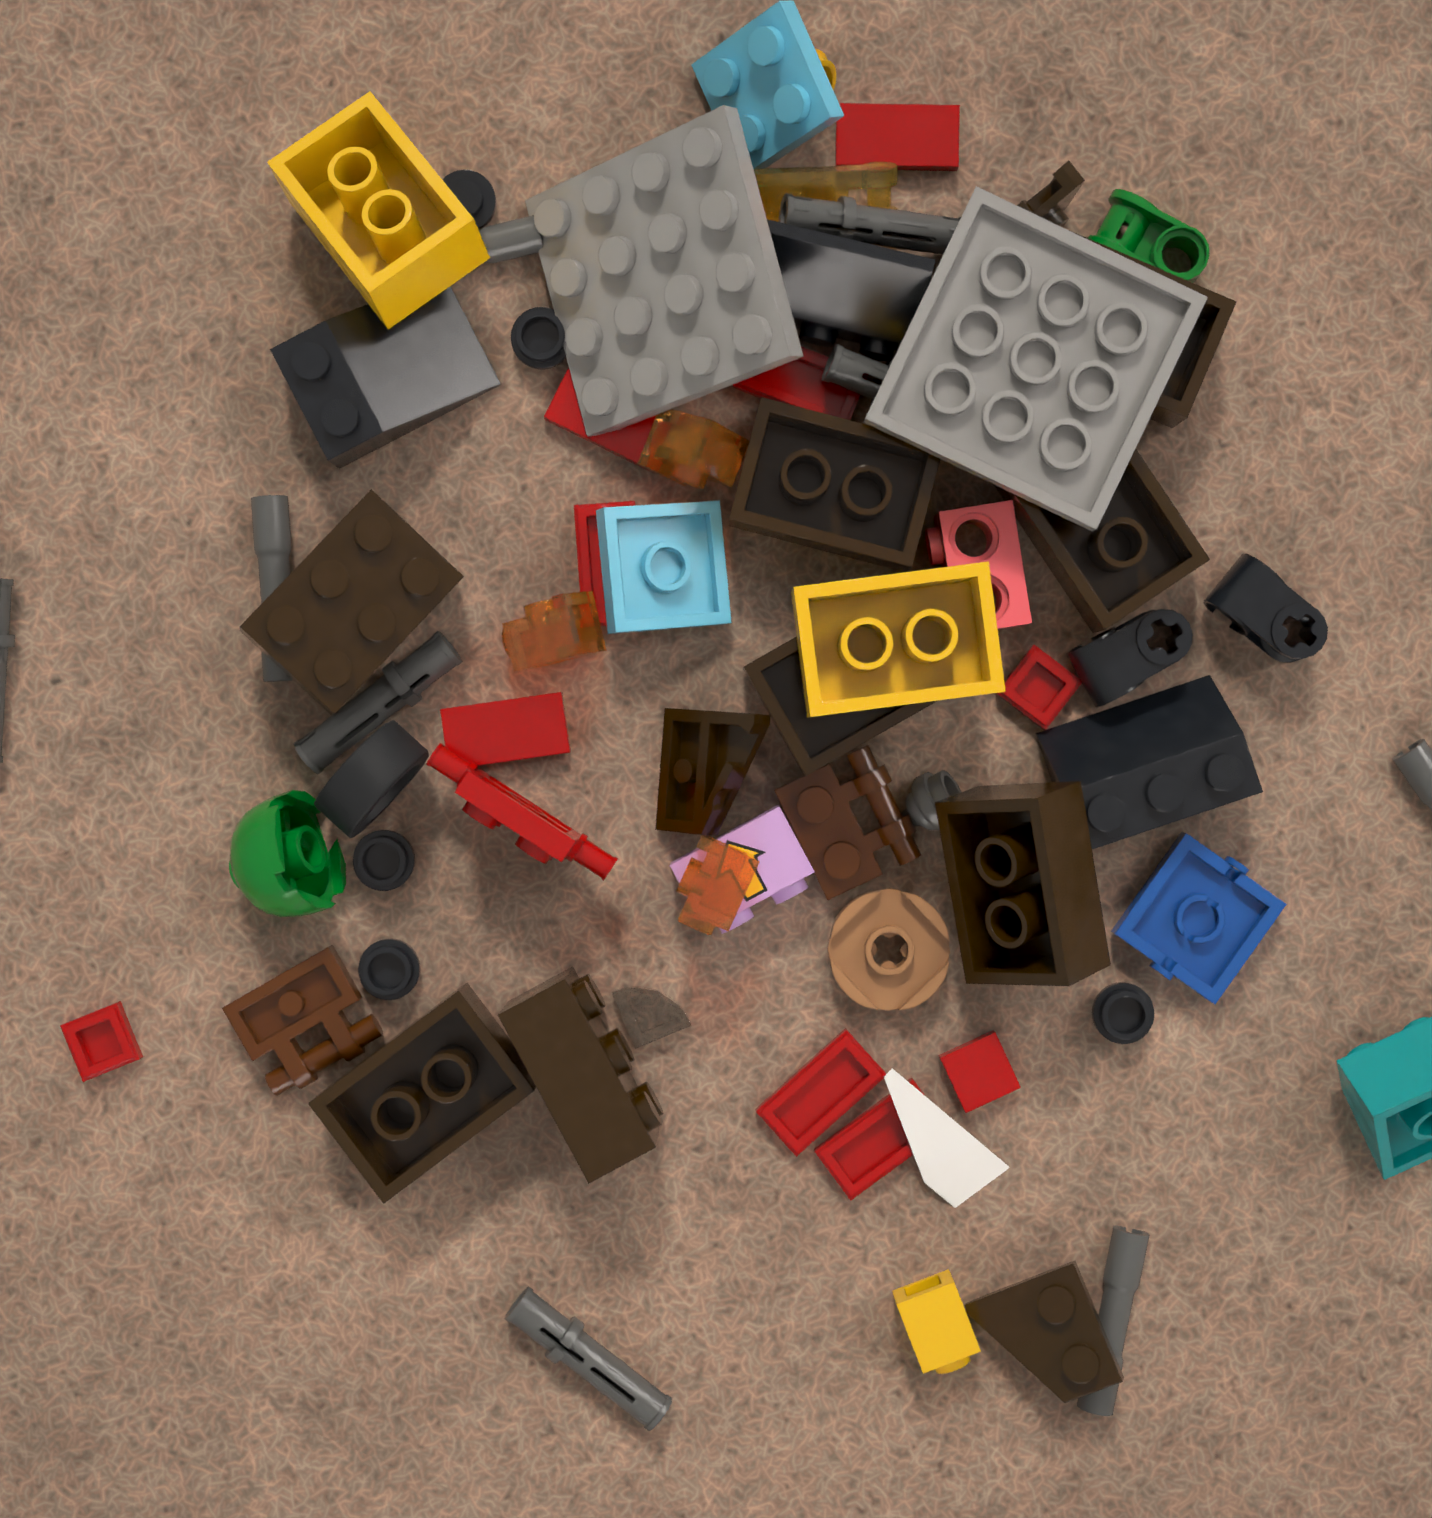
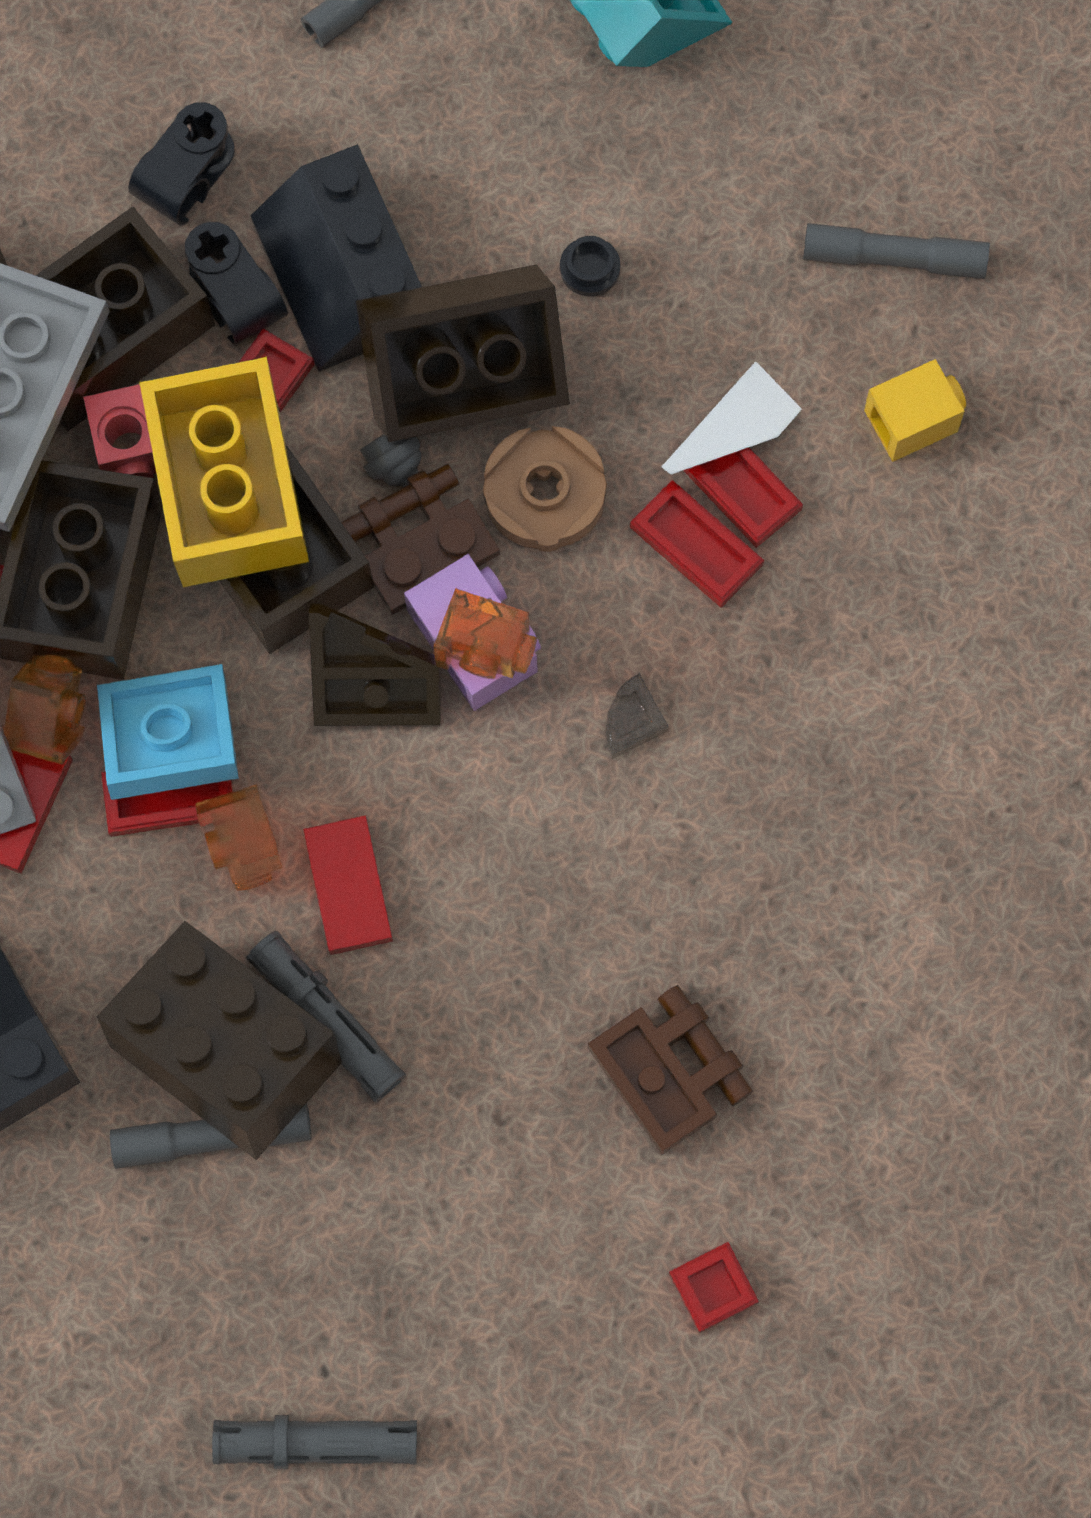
camera: 95 degrees left, 15 degrees down
(283, 857) = (496, 1096): green cylinder -> none
(371, 778) = (405, 1004): black tyre -> none
(383, 860) = (493, 999): black plate -> none
(389, 969) = (608, 984): black plate -> none
(424, 1093) = (729, 924): dark brown brick -> none
(497, 804) = (442, 830): red plate -> none
(583, 1073) = (691, 761): dark brown brick -> none
(588, 1358) = (956, 805): dark grey pin -> none
(979, 1071) = (661, 394): red tile -> none
(1052, 1331) = (911, 299): dark brown wing -> none
(1198, 917) = (488, 202): blue plate -> none

